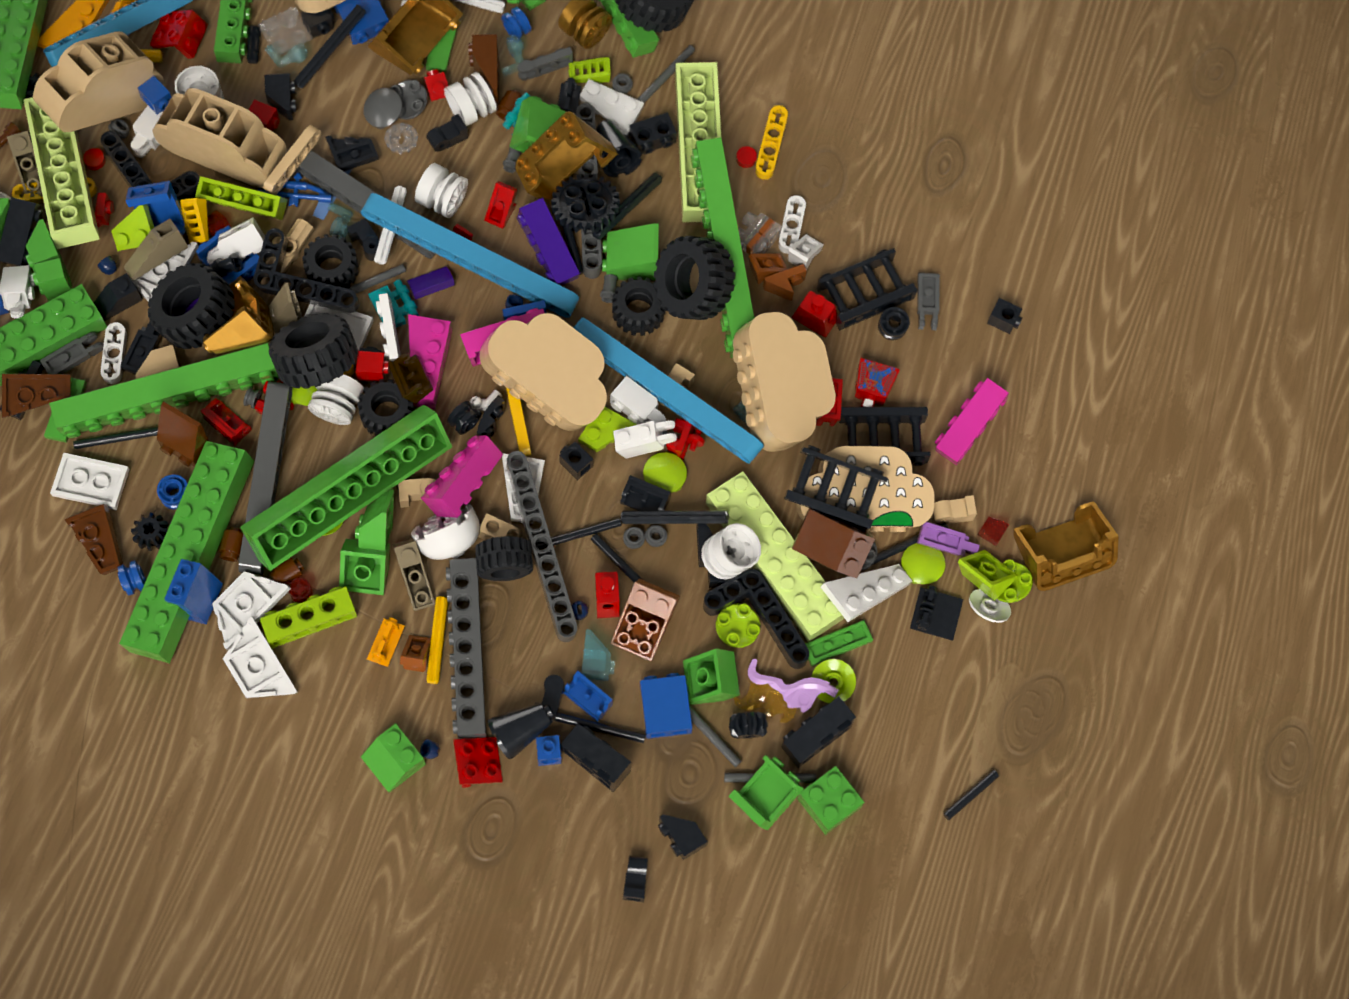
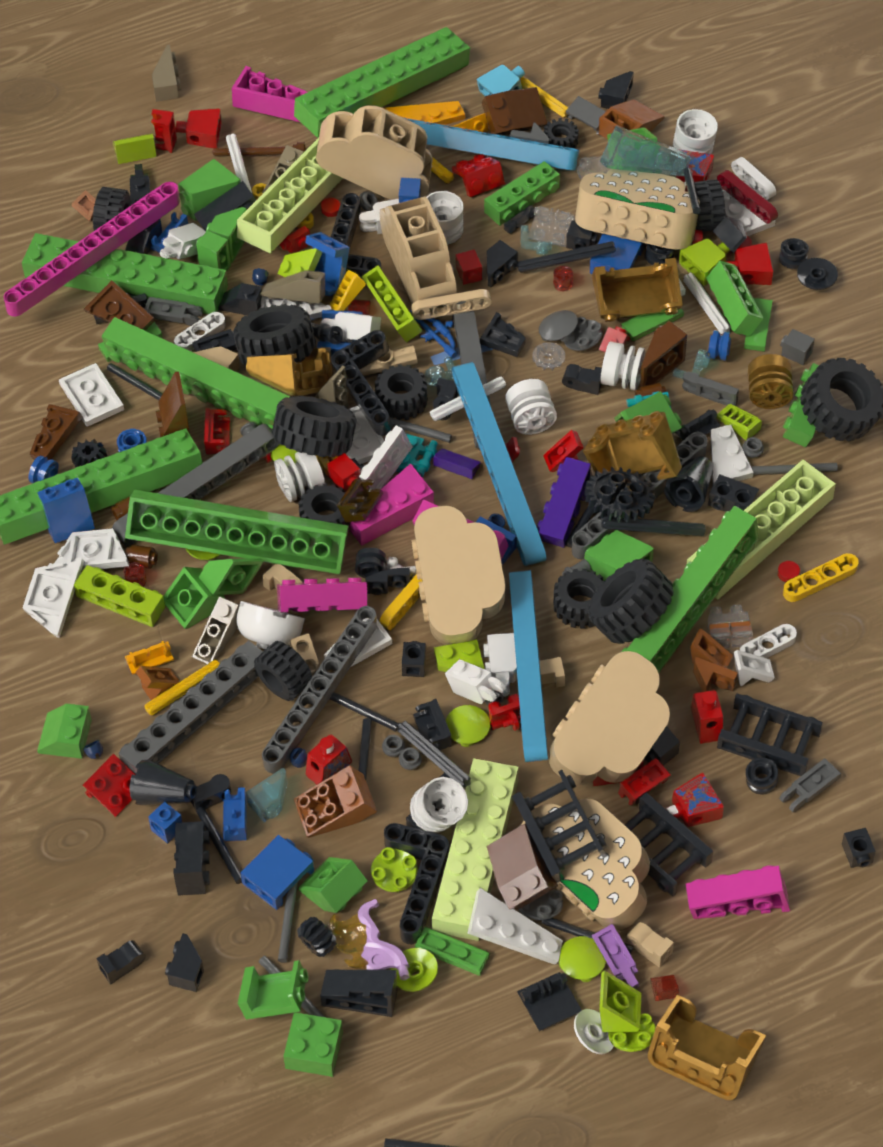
camera: 55 degrees right, 15 degrees down
(342, 60) = (563, 278): none -> clear red wheel

